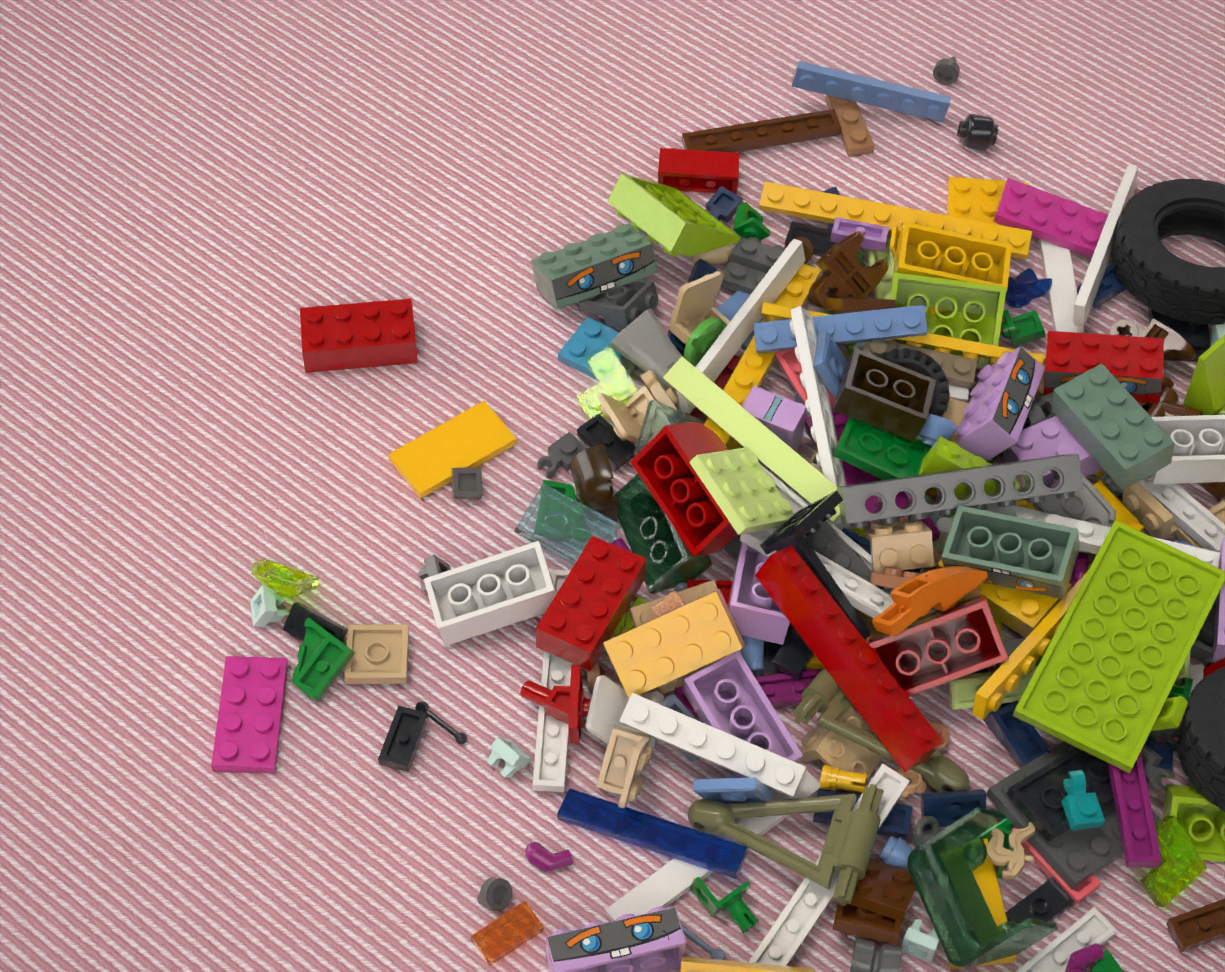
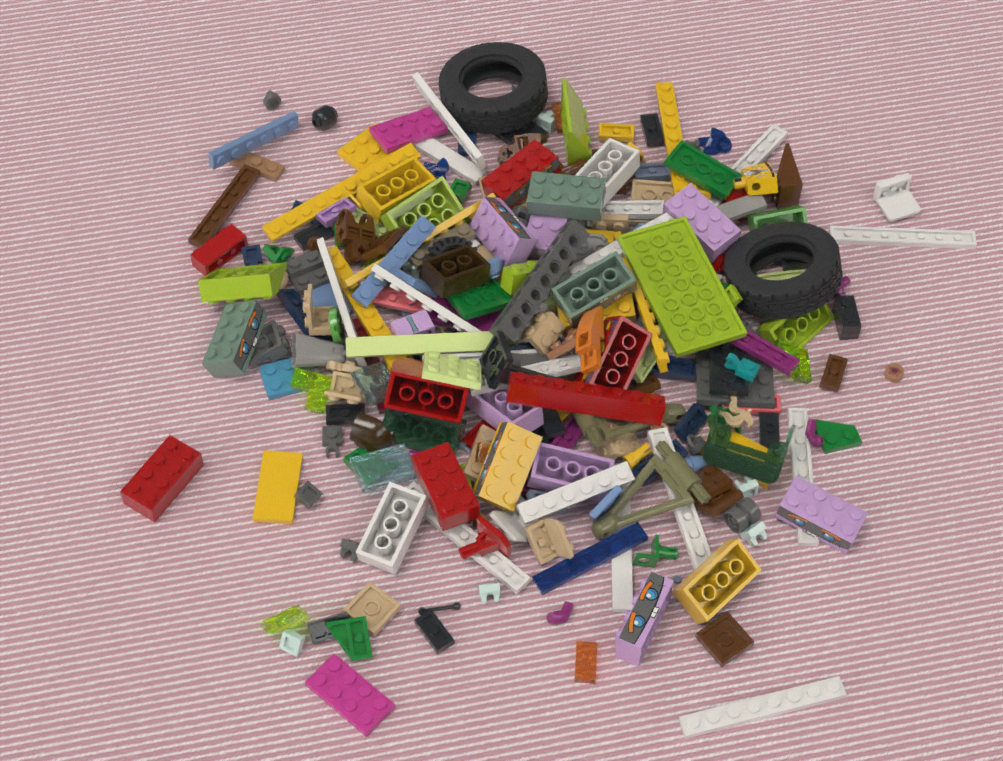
camera: 50 degrees left, 0 degrees up
(495, 894) = (560, 651): dark grey tile -> none
(936, 708) = (649, 385): none -> reddish brown plate

